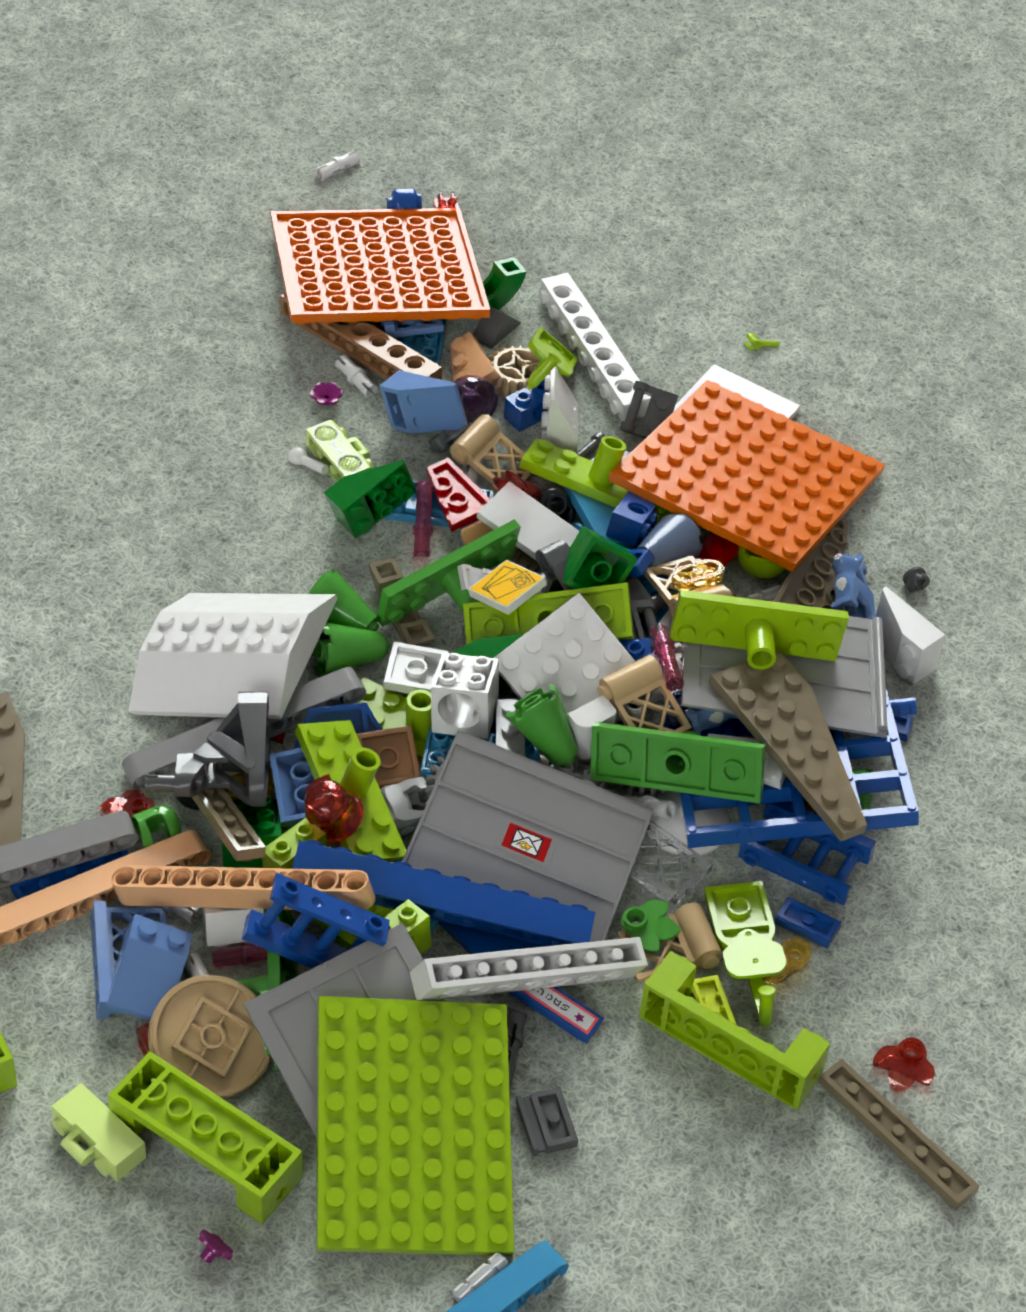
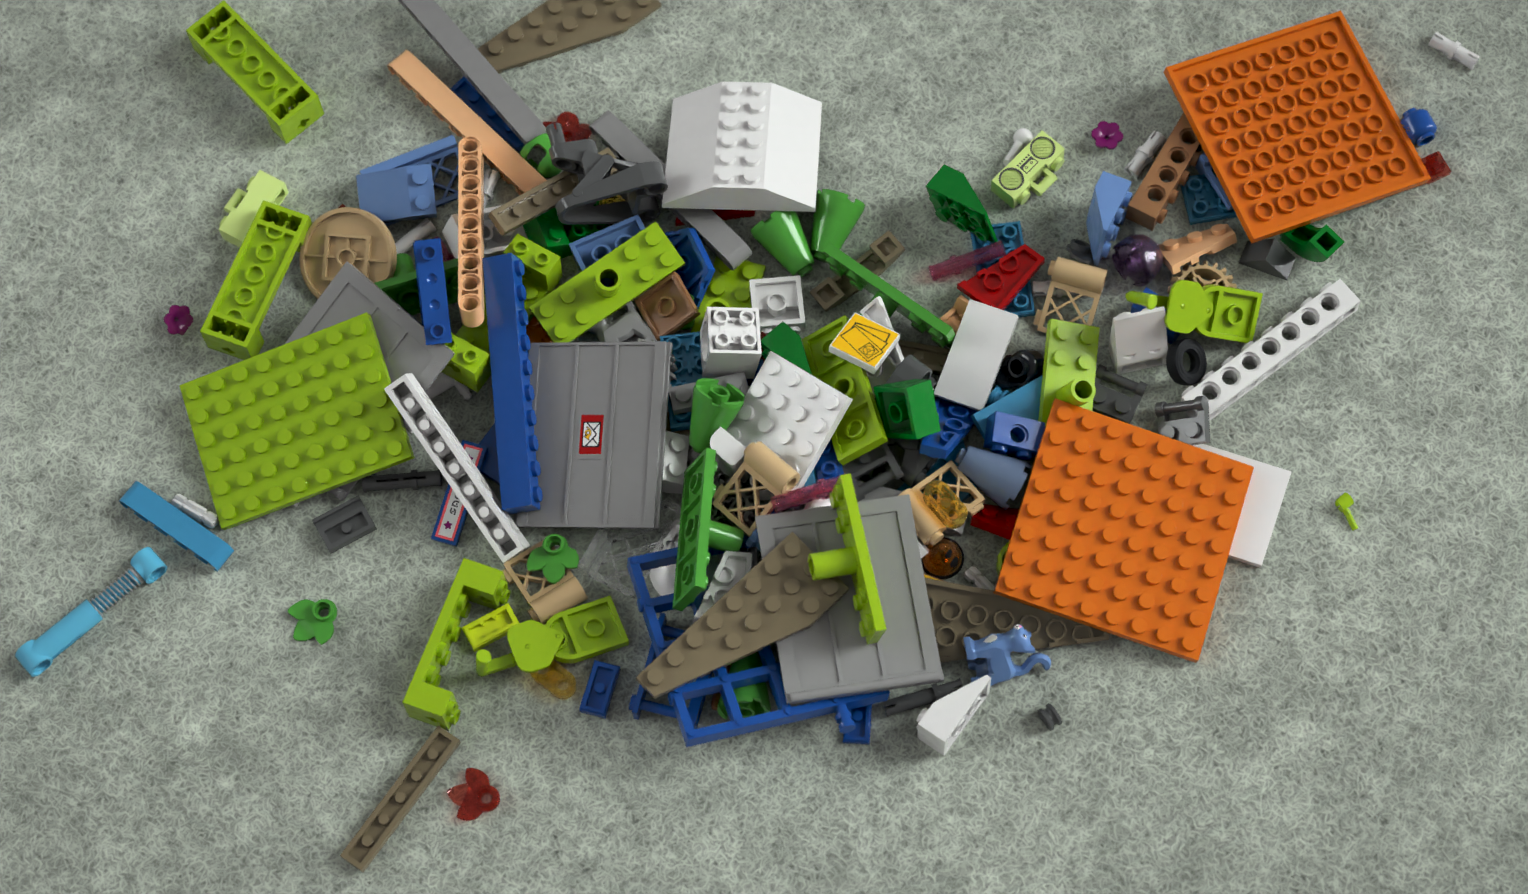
camera: 85 degrees right, 20 degrees up
(332, 808) = (565, 269): clear red helmet -> none
(526, 486) = (1024, 334): clear red plate -> none
(588, 397) = (1197, 360): none -> black tyre
(657, 1183) = (310, 621): none -> bright green plate

